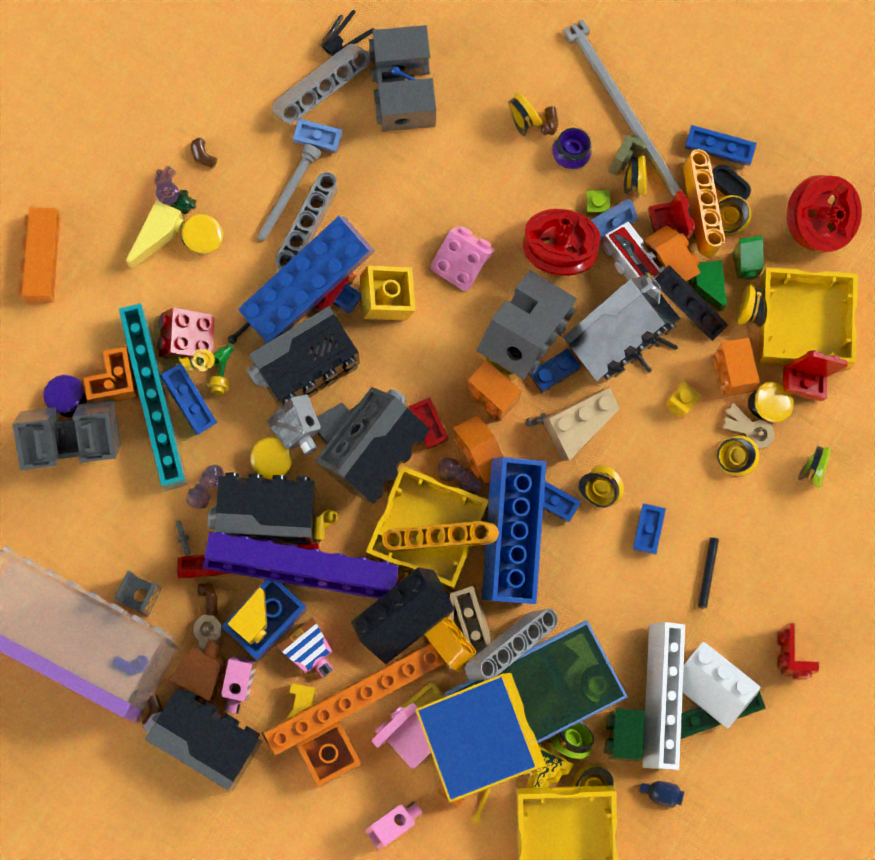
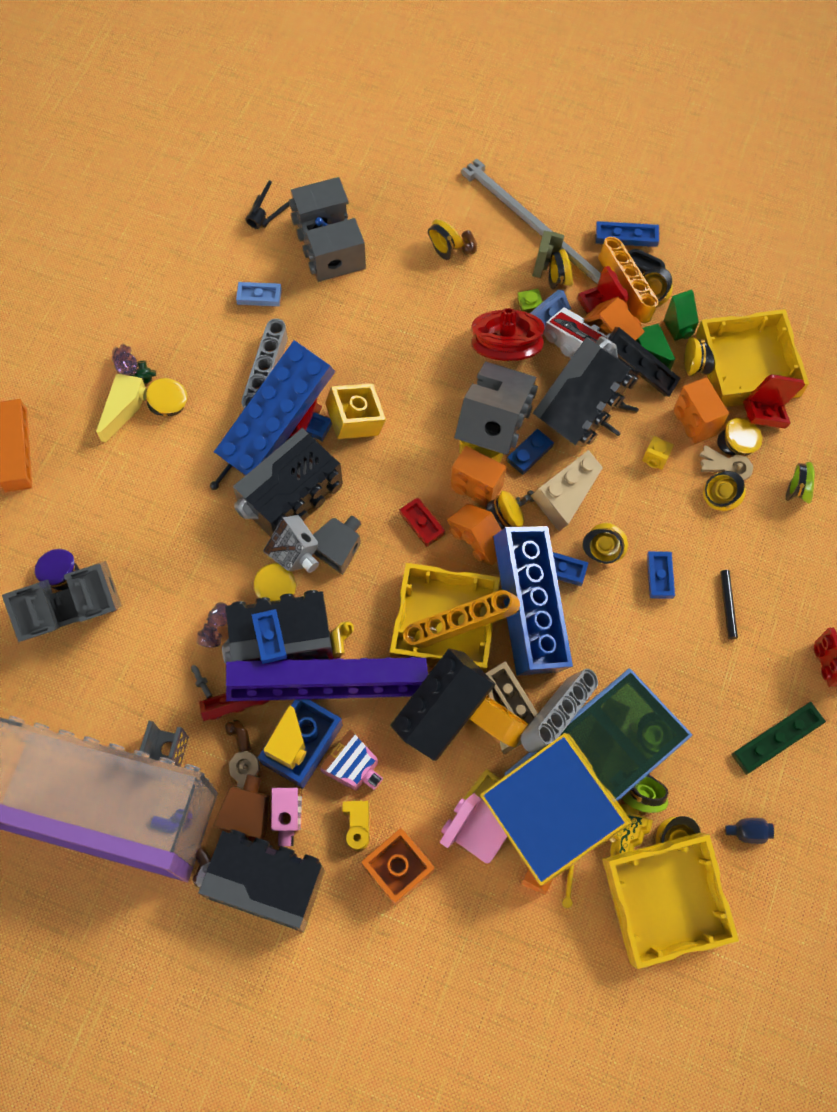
camera: 10 degrees left, 10 degrees down
(118, 380) = (105, 544): orange brick -> none
(152, 397) = (146, 552): teal brick -> none
(184, 332) = (167, 487): bracket -> none
(188, 399) = (181, 545): blue plate -> none
(198, 150) = (151, 330): reddish brown arm -> none
(205, 359) = (190, 500): yellow plant -> none
(254, 516) = (269, 636): none -> blue plate
(309, 155) = (255, 311): light grey piece -> none
(331, 82) = (244, 250): light grey beam -> none
(352, 698) = (408, 803): orange brick -> none
(373, 444) = (373, 547): piece -> none
(386, 830) = (478, 933): bright pink torso -> none
(450, 470) = (454, 560): arm -> none
(461, 257) = (417, 370): bright pink bracket -> none
(512, 432) = (506, 510): none -> yellow piece
(572, 148) = (495, 261): dark purple piece -> none
(625, 735) = (698, 777): dark green brick -> none
(664, 696) = (724, 731): white brick -> none
(717, 685) = (772, 708): white slope -> none
(810, 213) = (729, 278): red wheel -> none

